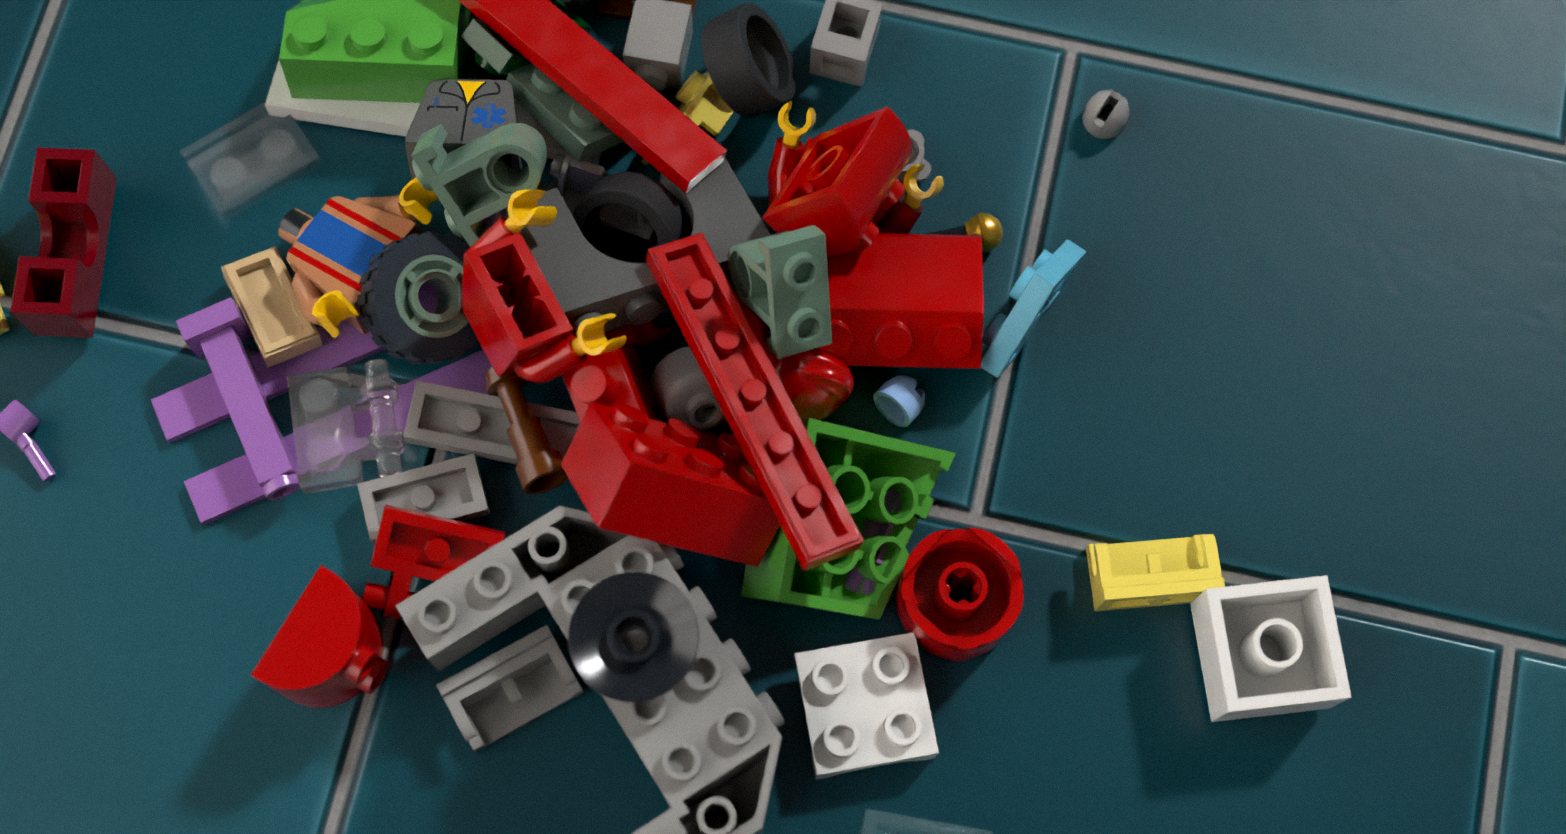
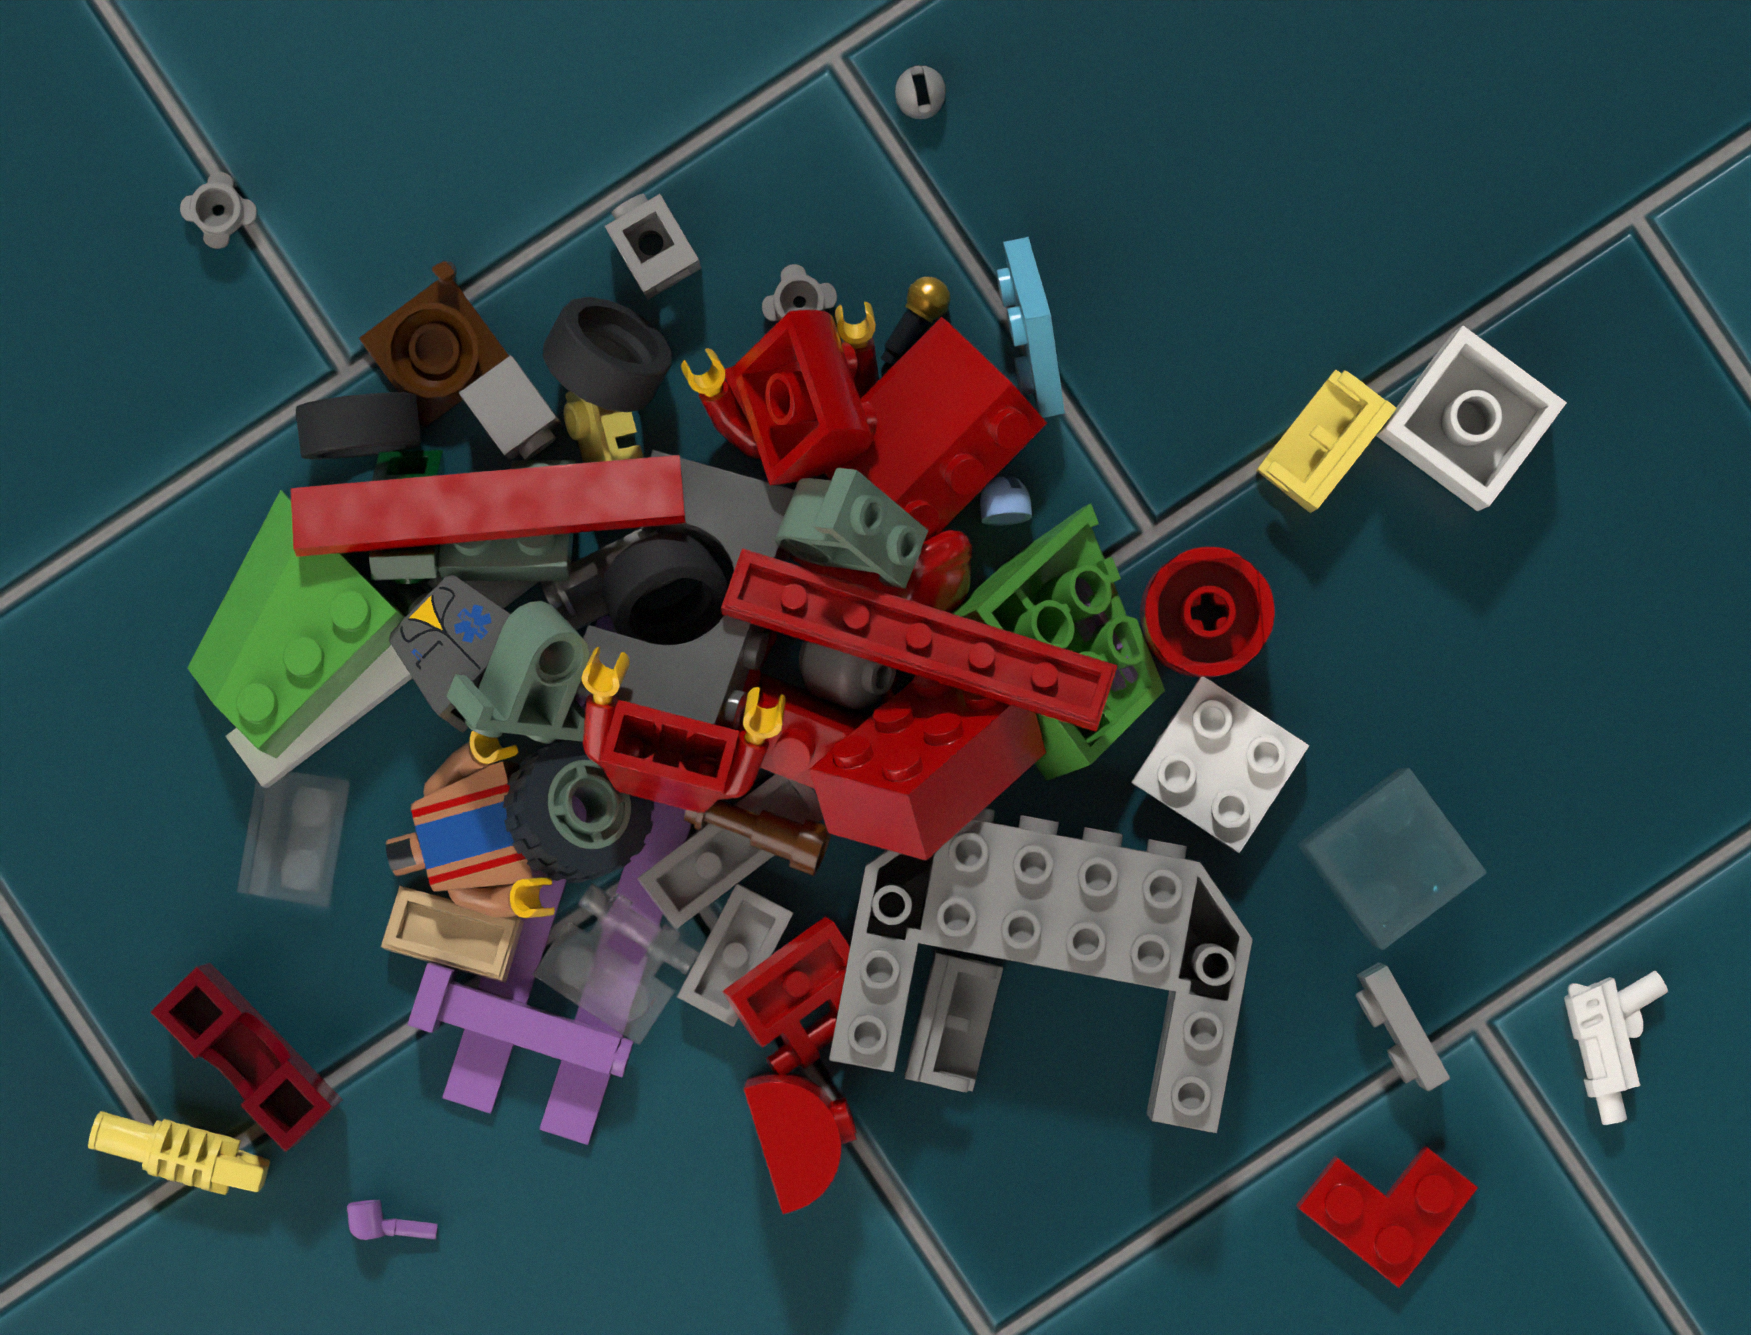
camera: 45 degrees left, 15 degrees up
(628, 604) = (1067, 915): black dish -> none

